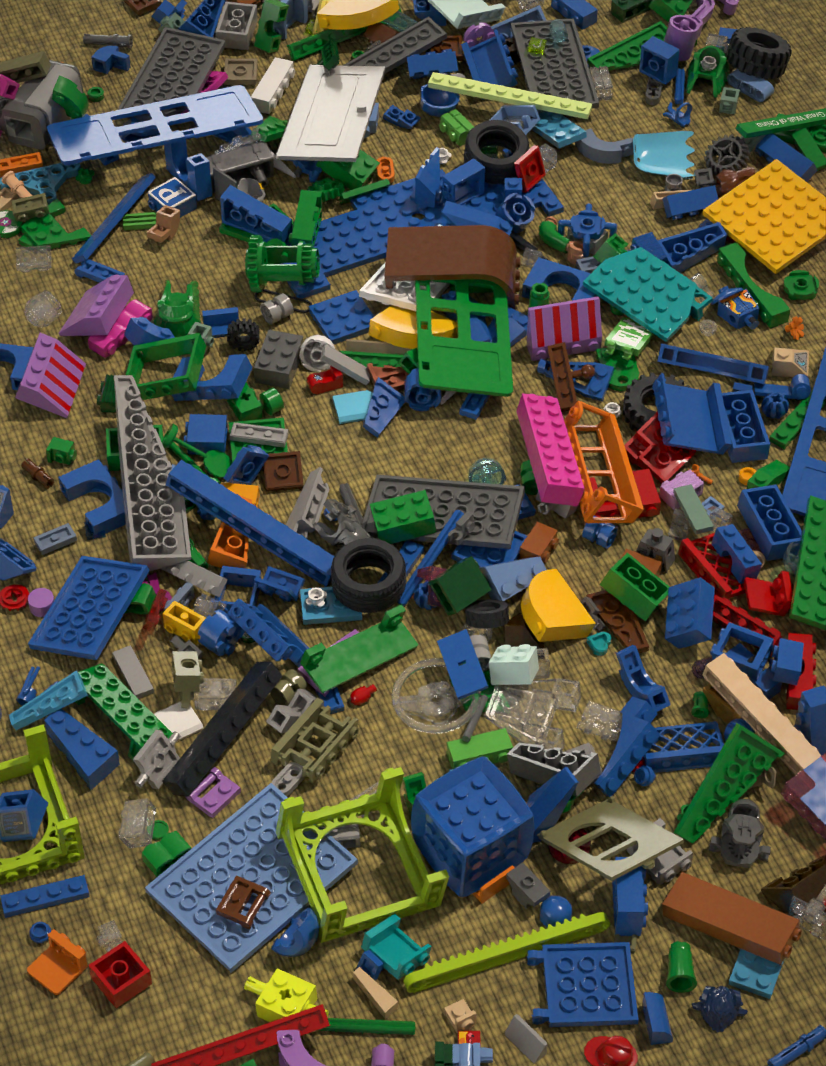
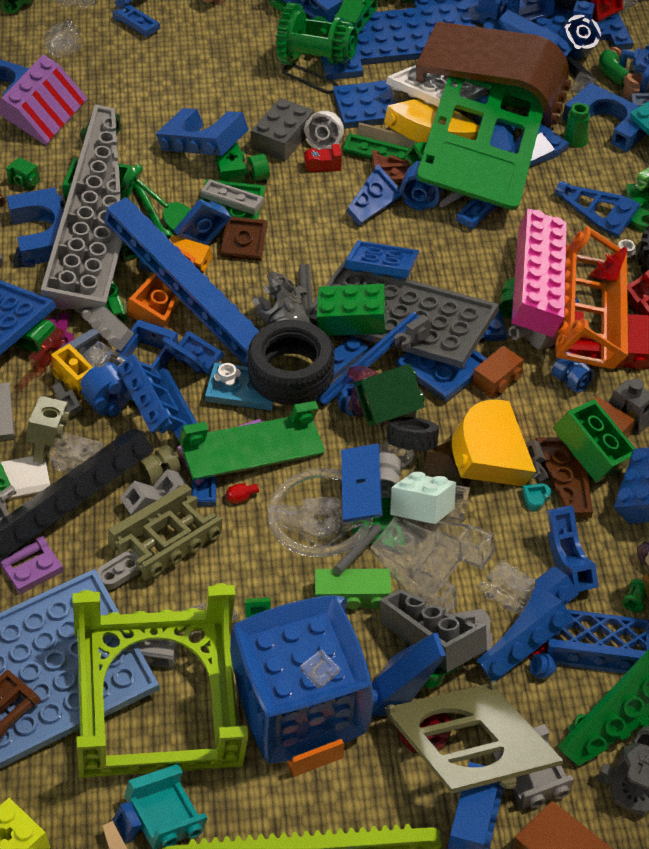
camera: 15 degrees right, 0 degrees up
(99, 308) = (120, 47): medium lavender slope -> none
(107, 344) = (130, 73): dark pink brick -> none
(142, 331) = (158, 82): blue brick -> none
(167, 349) = (191, 98): green window -> none
(178, 310) = (198, 67): green piece -> none
(206, 333) = (209, 93): sand green brick -> none
(206, 432) = (179, 184): blue brick -> none
(219, 320) = (238, 85): blue panel -> none
(243, 327) = (250, 106): black tyre -> none
(274, 310) = (298, 82): light grey wheel -> none
(299, 935) = (52, 765): blue cylinder -> none
(309, 504) = (256, 278): light grey wedge -> none
(345, 364) = (348, 145): light grey tile -> none
(352, 406) = (342, 189): medium azure tile -> none
(410, 465) = (381, 259): none -> blue plate
(486, 471) = (463, 281): clear light blue cylinder -> none
(492, 813) = (320, 669): none -> clear tile
(511, 577) = (452, 399): medium blue wedge -> none
(527, 886) = (352, 769): dark grey brick -> none
(555, 909) = (379, 809): blue hair -> none
(564, 376) = (581, 200): reddish brown plate -> none
(568, 322) = (596, 153): medium lavender slope -> none
(605, 432) = (611, 267): none -> red piece

